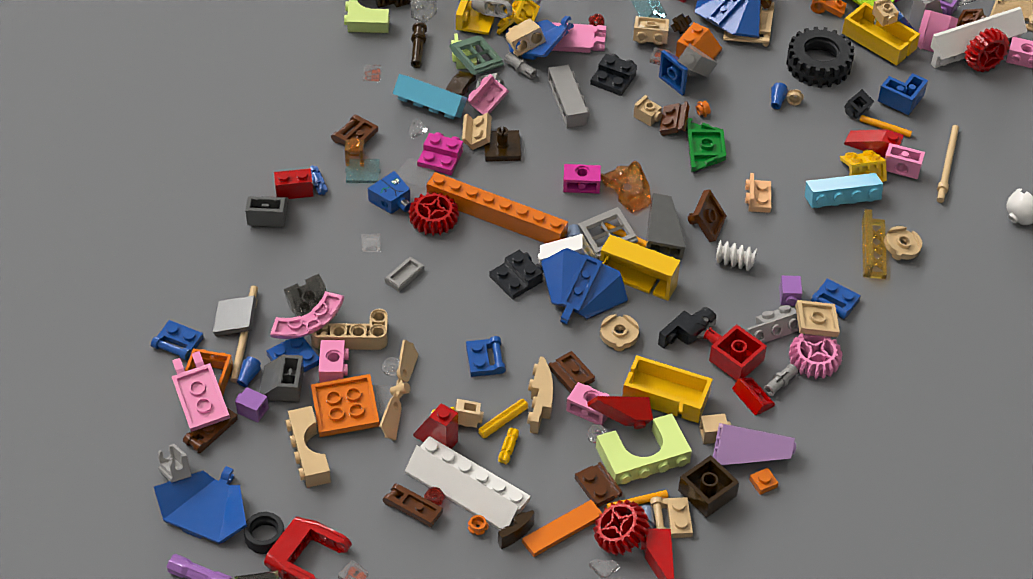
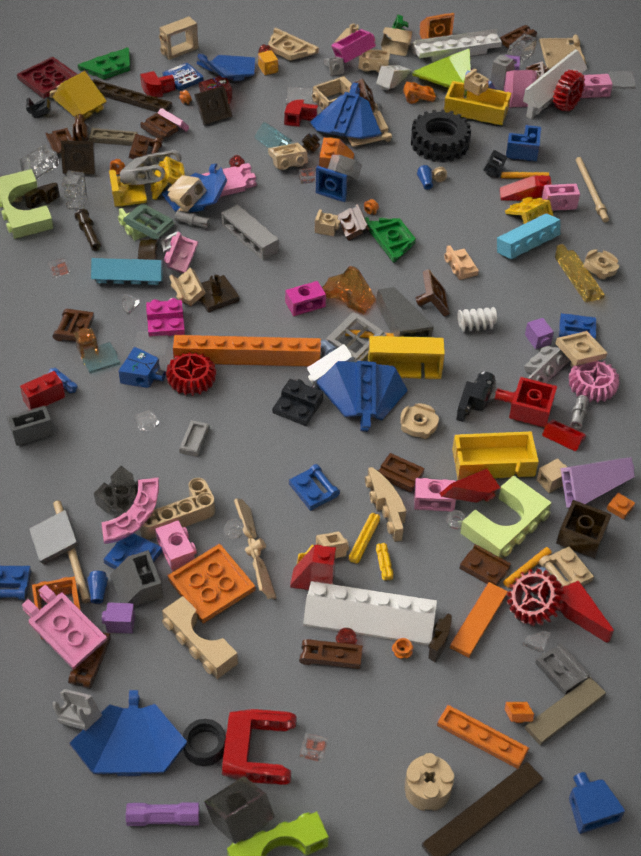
camera: 25 degrees left, 0 degrees up
(614, 74) = (278, 201): black plate -> none

